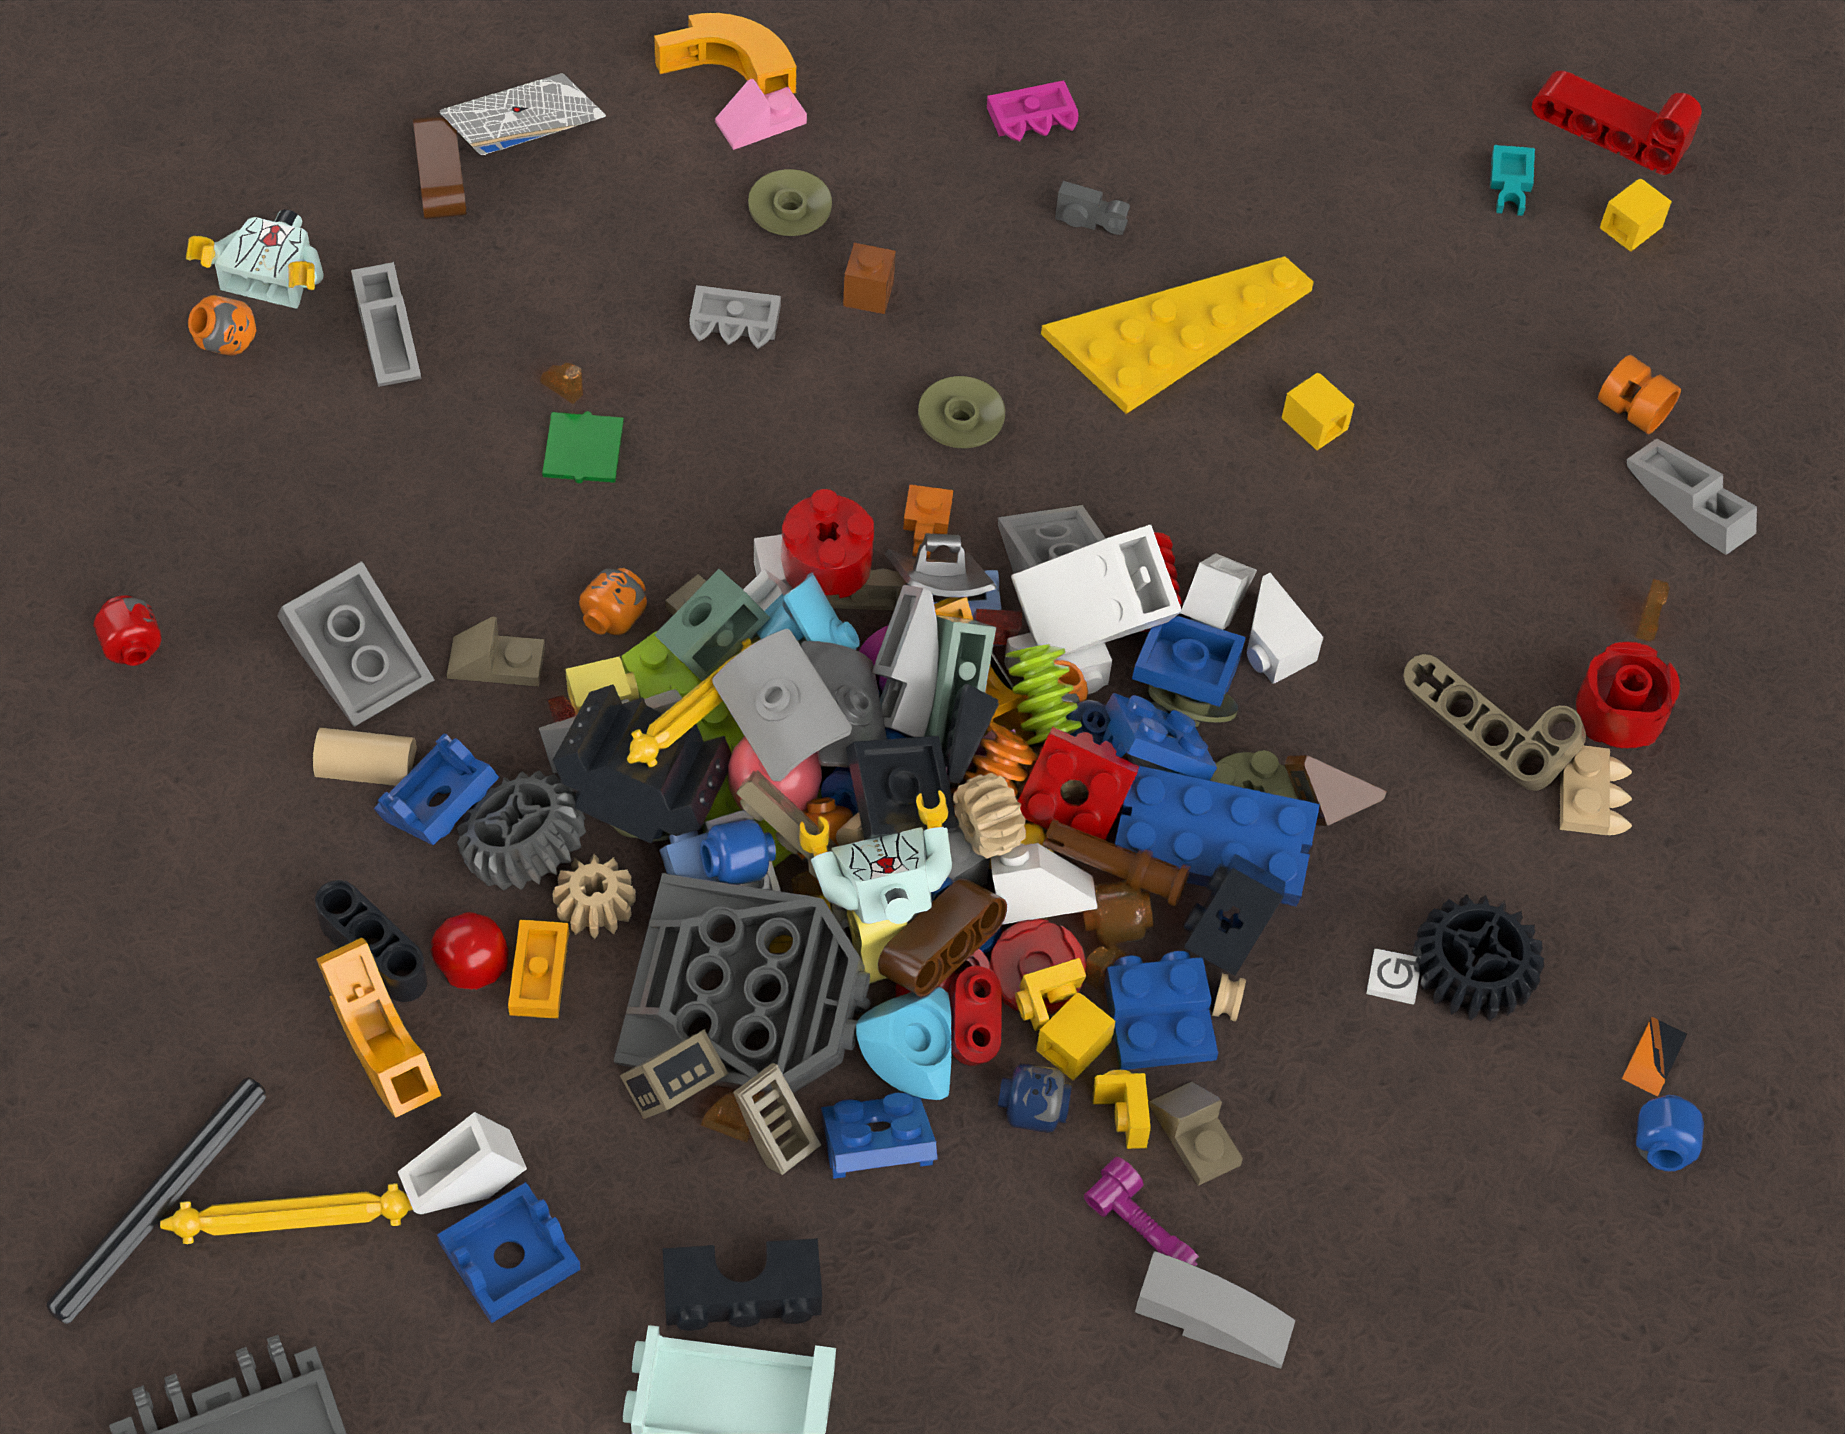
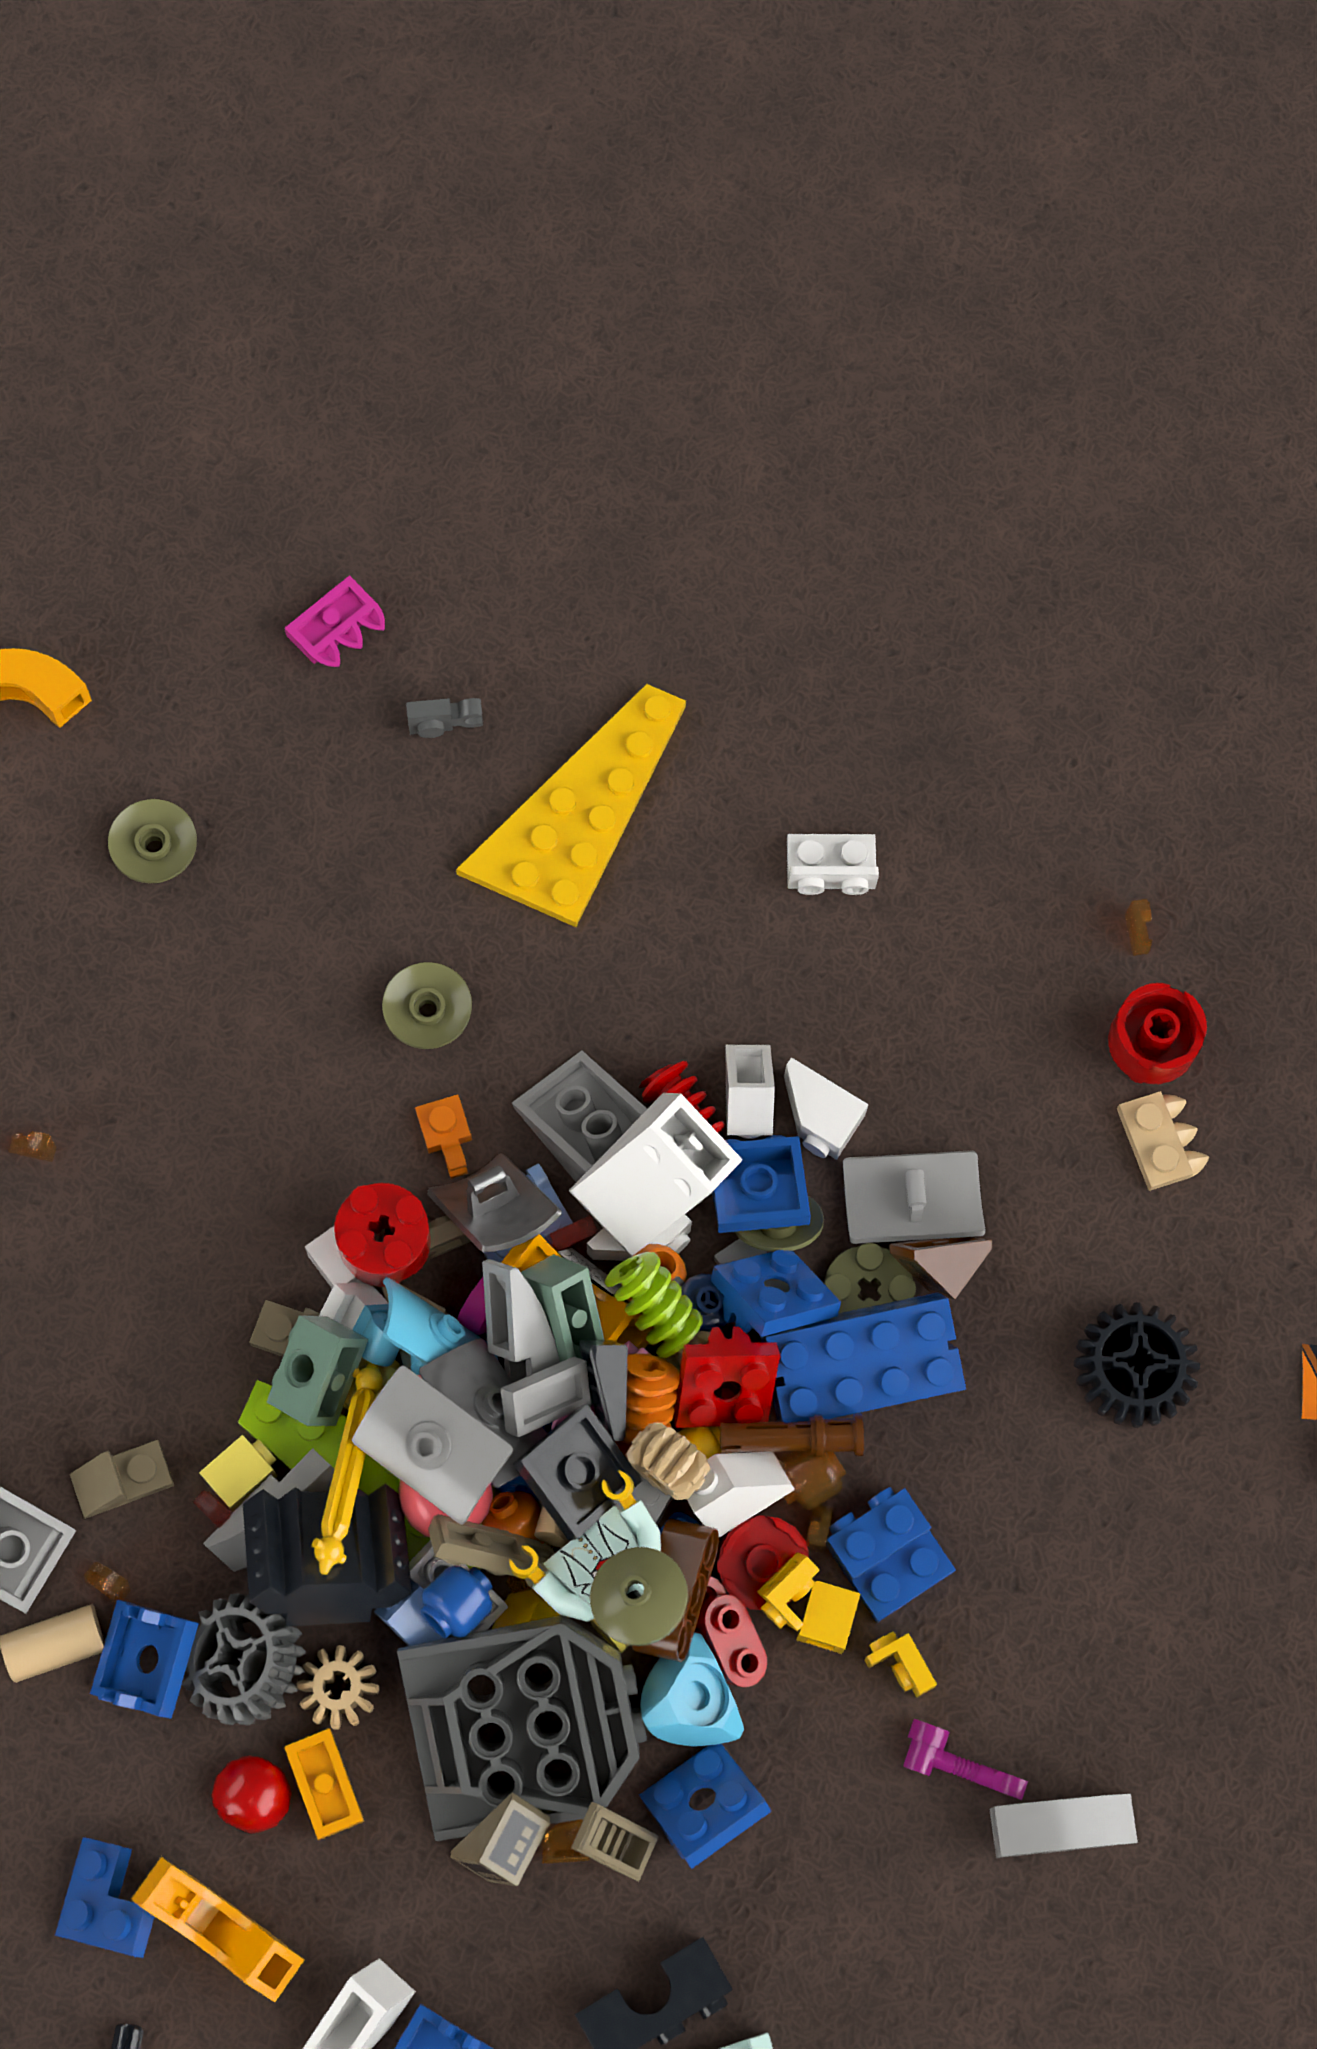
camera: 25 degrees left, 15 degrees up
(285, 974) = (93, 1905): none -> blue plate
(366, 921) = (137, 1826): black beam -> none
(436, 723) = (107, 1582): none -> clear orange tile
(583, 447) = (86, 1207): green piece -> none
(613, 601) = (202, 1368): orange head -> none
(734, 315) = (160, 995): light grey plate -> none
(758, 116) = (72, 749): bright pink slope -> none
(869, 278) = (270, 895): dark orange brick -> none
(902, 714) = (545, 1396): none -> light grey tile
(903, 889) = (651, 1615): none -> olive dish
(1035, 1097) = (820, 1694): dark blue head -> none
(1195, 1131) = (968, 1653): dark tan slope -> none
(1229, 997) = (942, 1510): tan bush -> none
(1230, 940) = (916, 1437): black brick -> none
(1317, 411) = (753, 849): yellow panel -> none
(1330, 731) = (913, 1197): none -> light grey shield
(1384, 453) = (831, 863): none -> white bracket
(1393, 976) = (1070, 1413): white tile -> none
(1487, 716) = (1045, 1113): dark tan beam -> none
(1512, 173) = (817, 488): teal plate -> none
(1619, 123) = (890, 385): red beam -> none
(1635, 214) = (949, 487): yellow panel -> none
(1651, 402) = (1051, 699): orange wheel -> none
(1694, 495) = (1125, 780): light grey slope -> none

